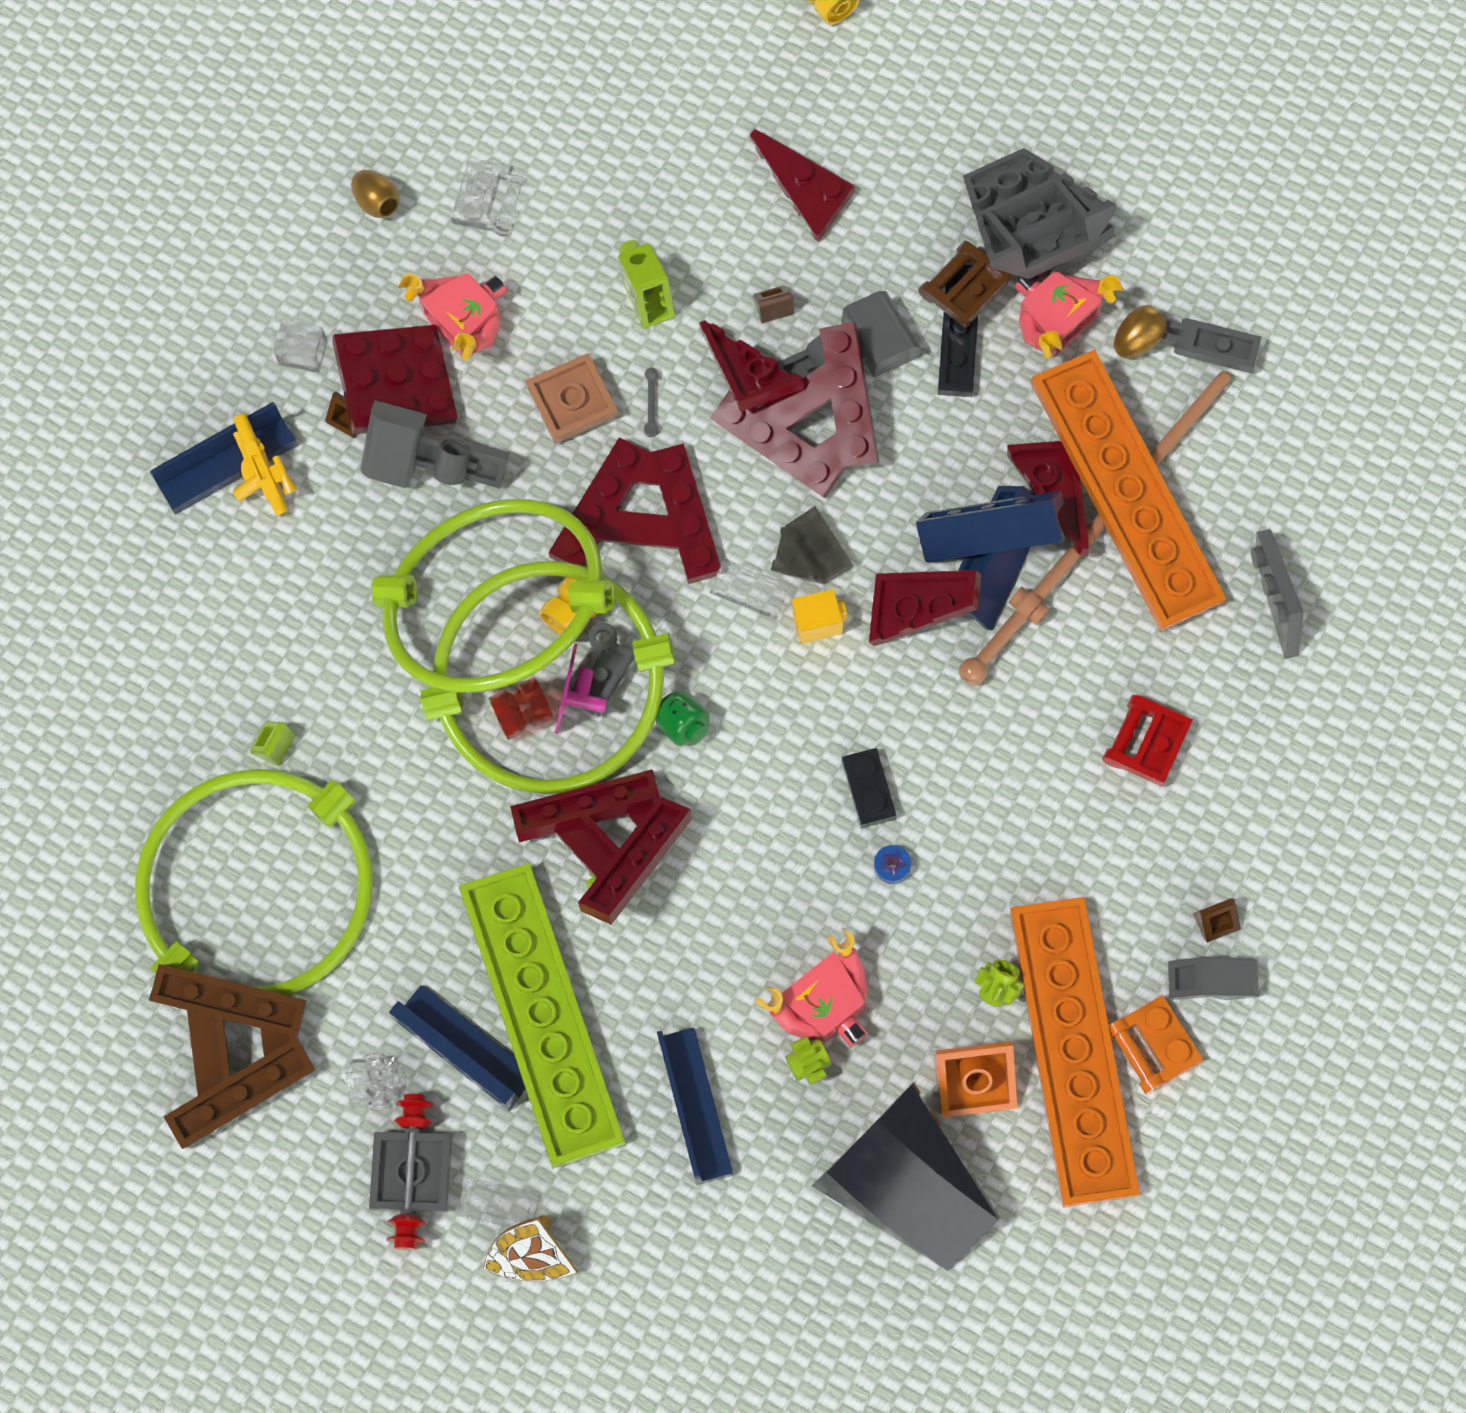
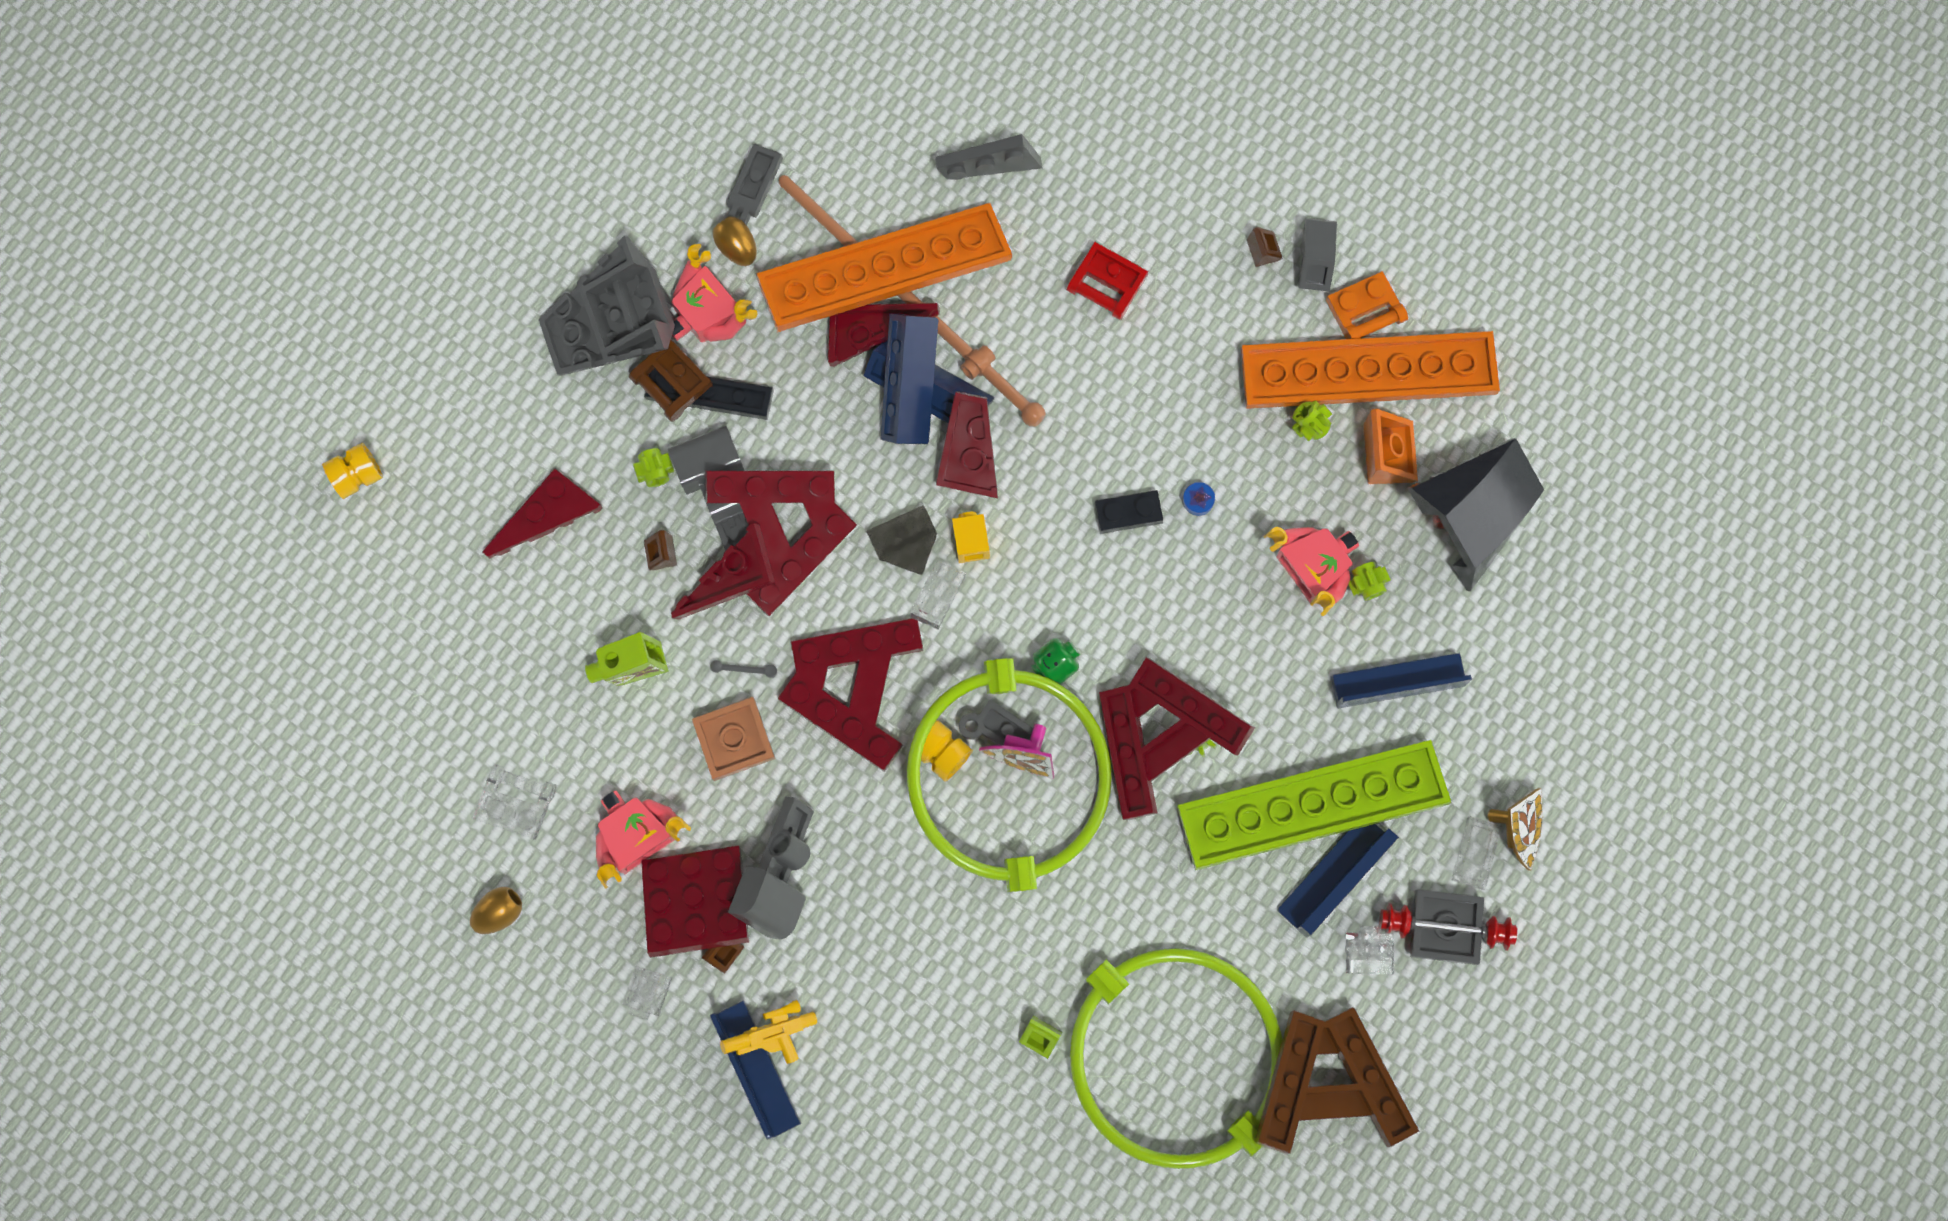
camera: 85 degrees left, 5 degrees up
(508, 713) = (1033, 801): clear red wheel -> none
(584, 595) = (909, 908): lime piece -> none
(863, 279) = (653, 467): none -> lime gear

